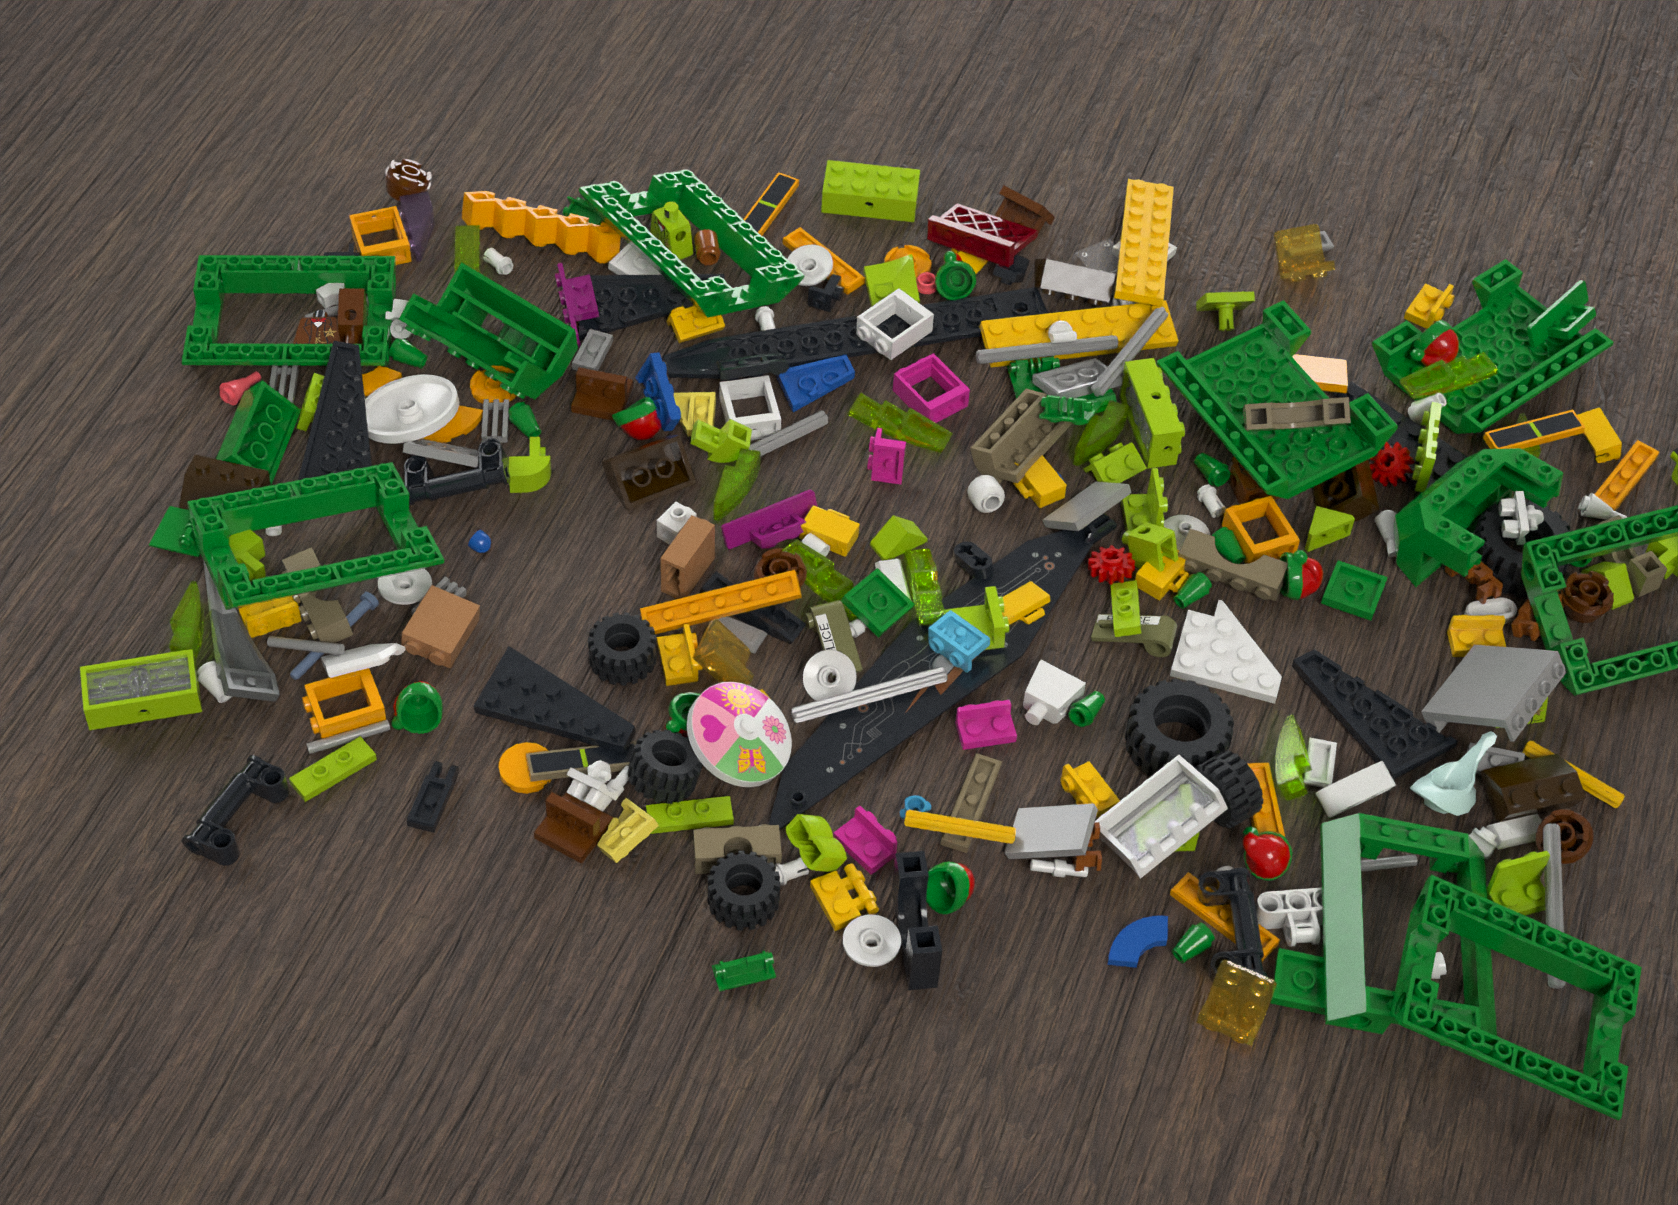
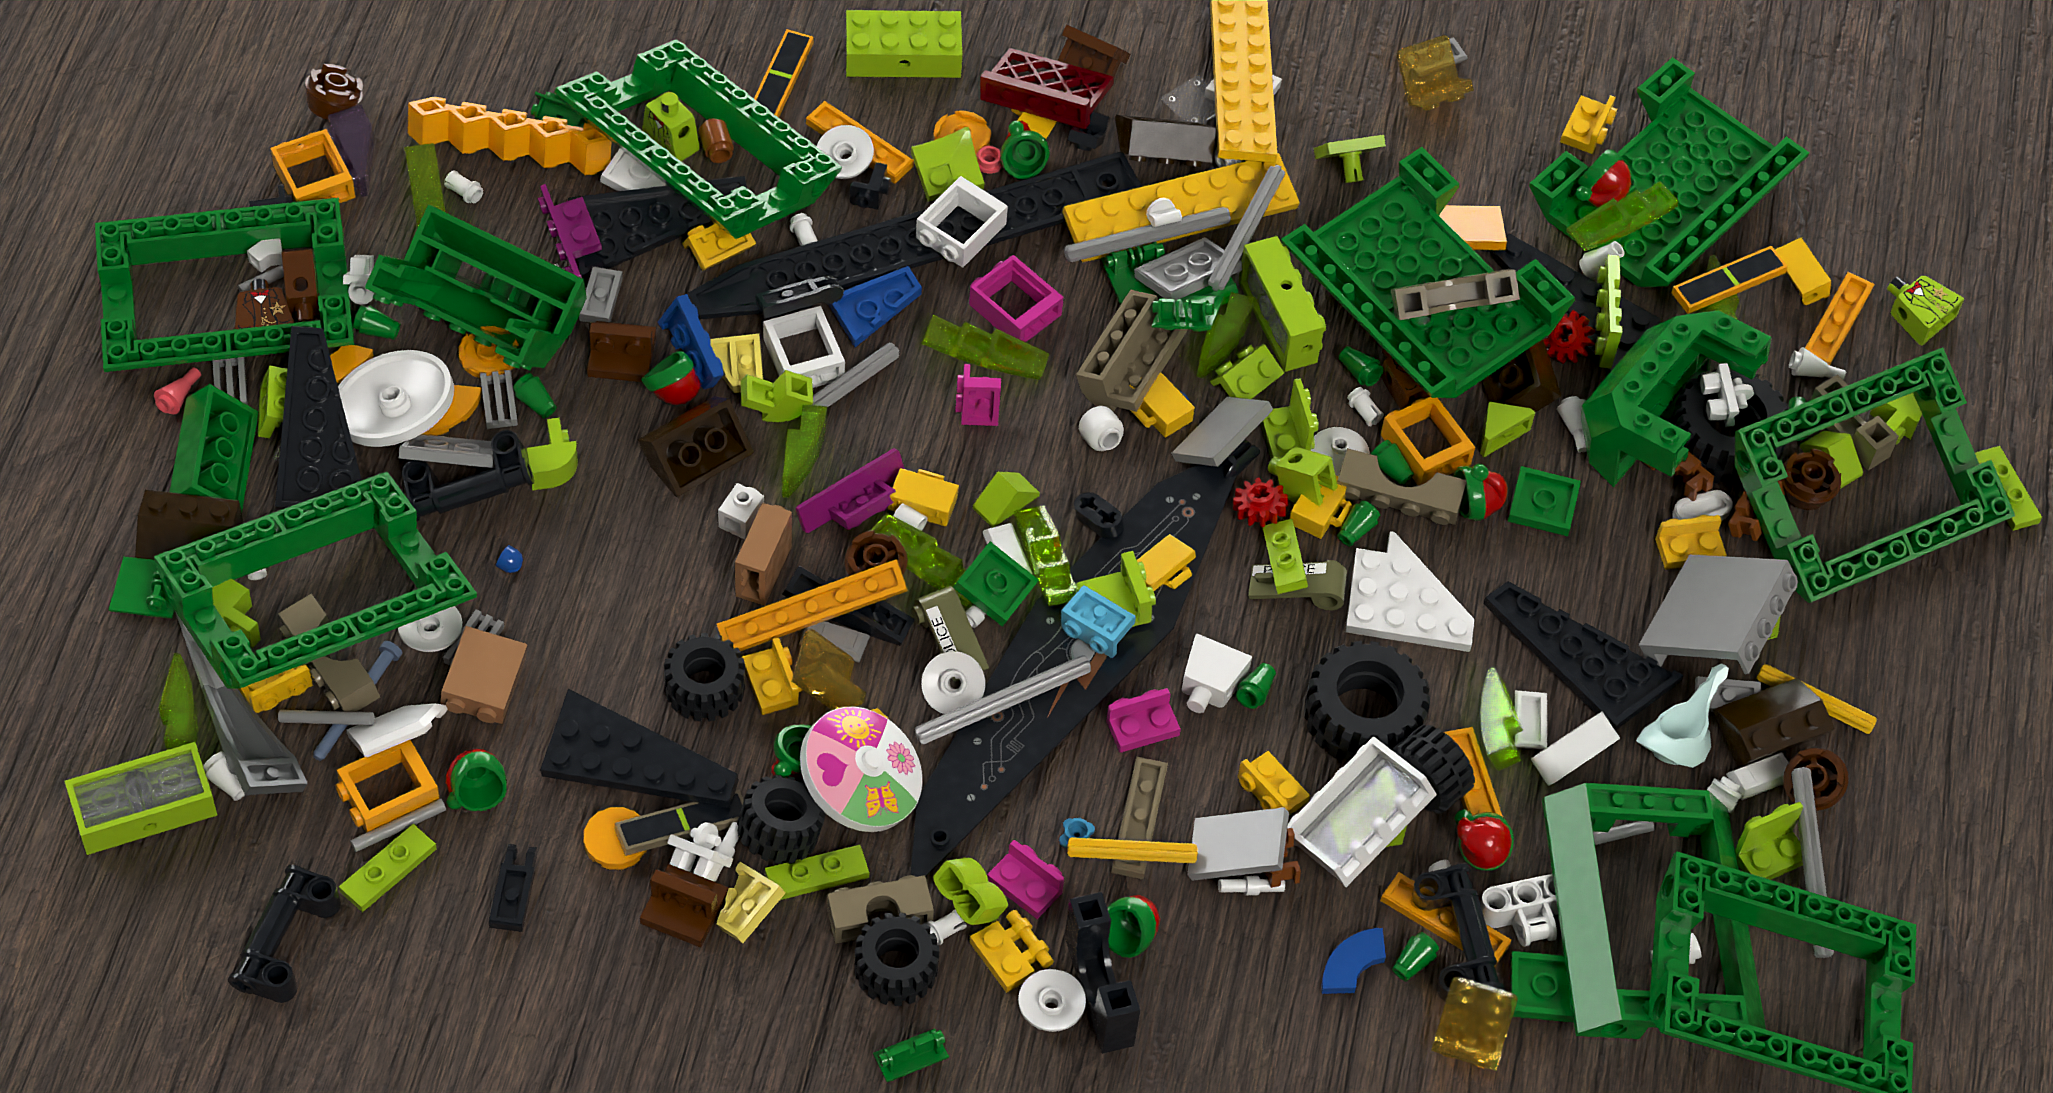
camera: 10 degrees left, 5 degrees up
(1563, 317) = (1748, 126): green bracket -> none

